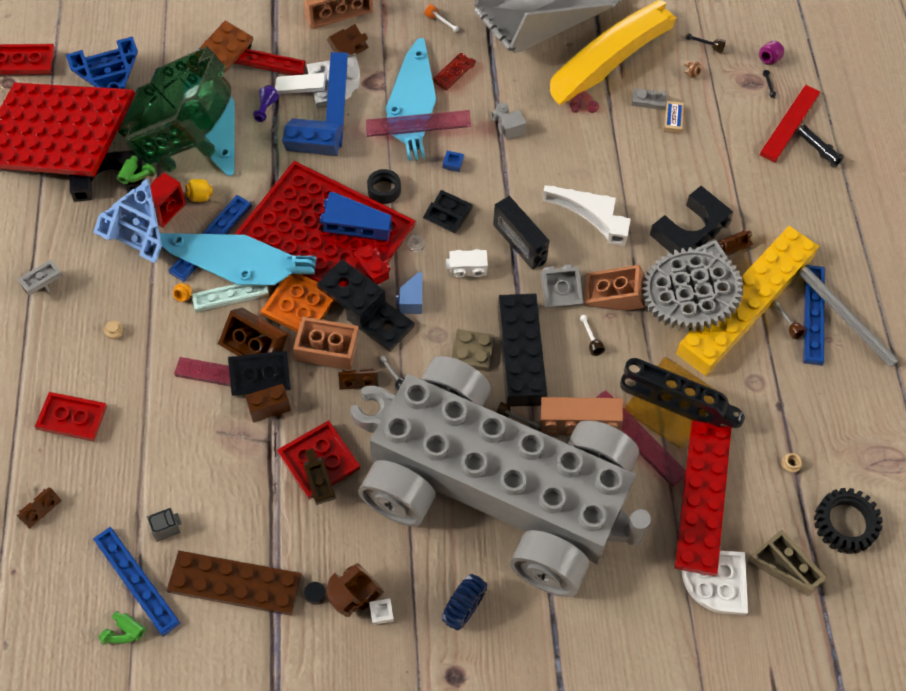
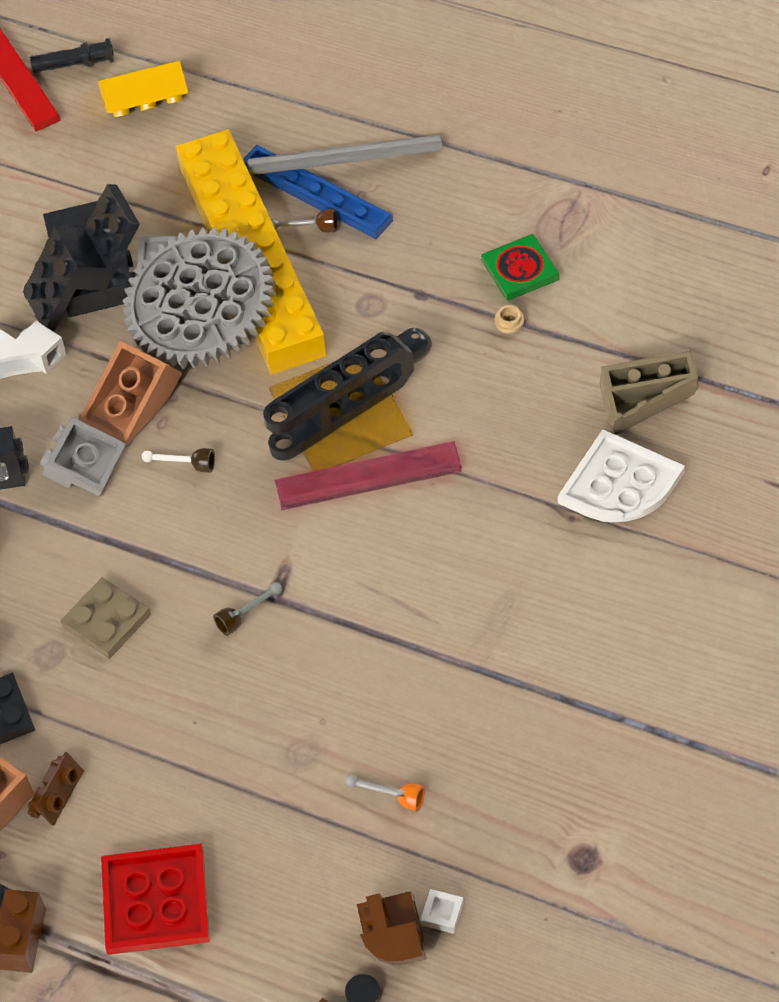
camera: 55 degrees left, 5 degrees down
(318, 478) = (190, 904): dark brown hinge -> none
(383, 359) = (103, 733): light grey hinge -> none
(443, 560) = (409, 795): none -> hinge
(464, 601) = (492, 789): dark blue gear -> none
(521, 350) = (149, 551): black brick -> none
(553, 490) = (250, 698): light grey piece -> none
(562, 414) = (304, 520): nougat brick -> none
(678, 216) = (81, 257): none -> black bracket
(703, 499) = (502, 438): red plate -> none
(736, 242) = (152, 218): reddish brown hinge -> none
(822, 189) = (143, 88): none -> yellow slope
(833, 536) = (622, 271): black tyre -> none
(834, 451) = (520, 267): none -> tile

